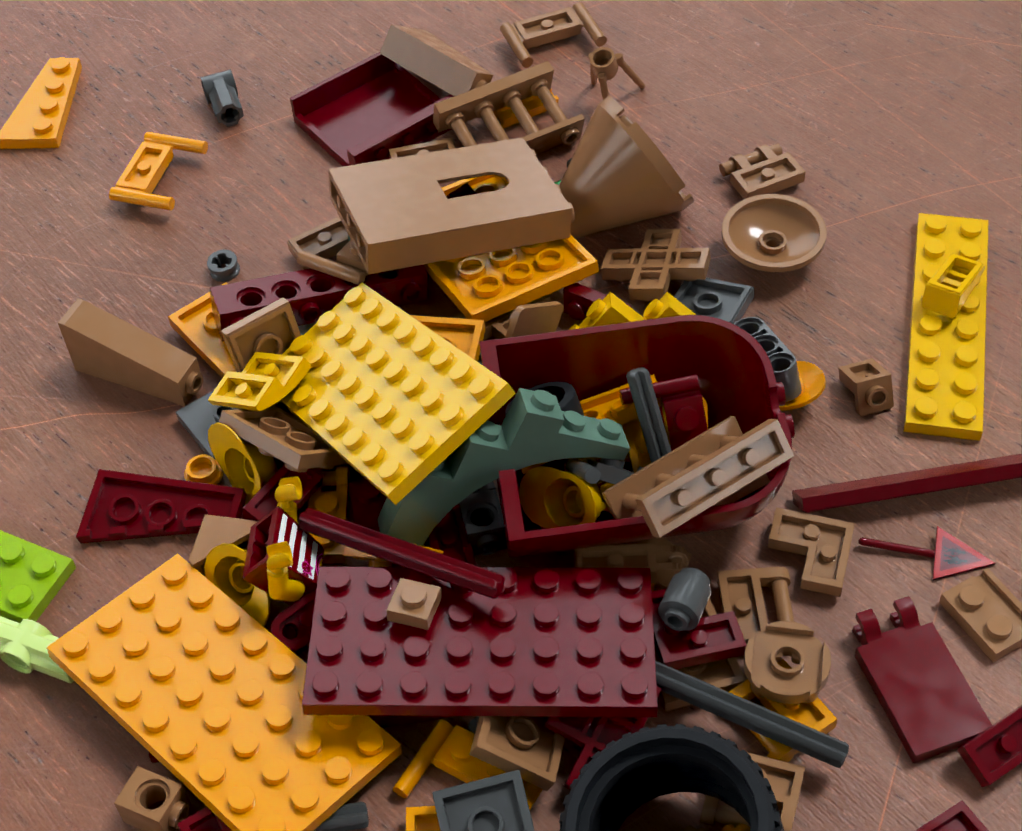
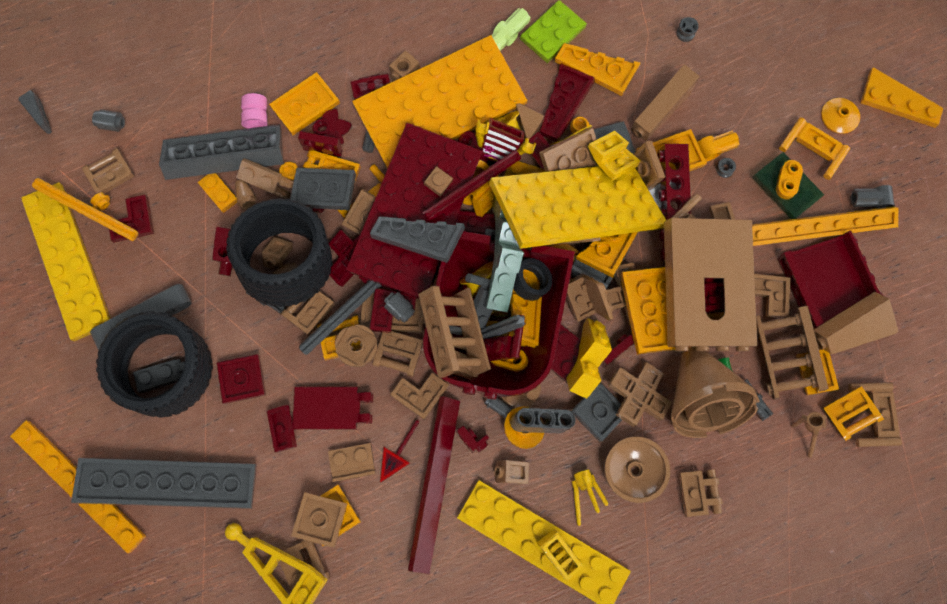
camera: 105 degrees right, 25 degrees up
(73, 460) = (608, 72): none -> light orange wing
(87, 163) = (835, 120): none -> light orange dish
(184, 277) = (714, 146): none -> light orange piece
(226, 179) = (790, 178): none -> light orange plate
(233, 187) = (805, 197): none -> clear green plate
(287, 134) = (825, 225): none -> light orange plate
(545, 574) = (420, 237): none -> dark grey wing
(547, 46) = (849, 406): none -> light orange plate
(826, 293) = (586, 482): none -> yellow plant
(849, 447) = (469, 437): none -> dark red bracket

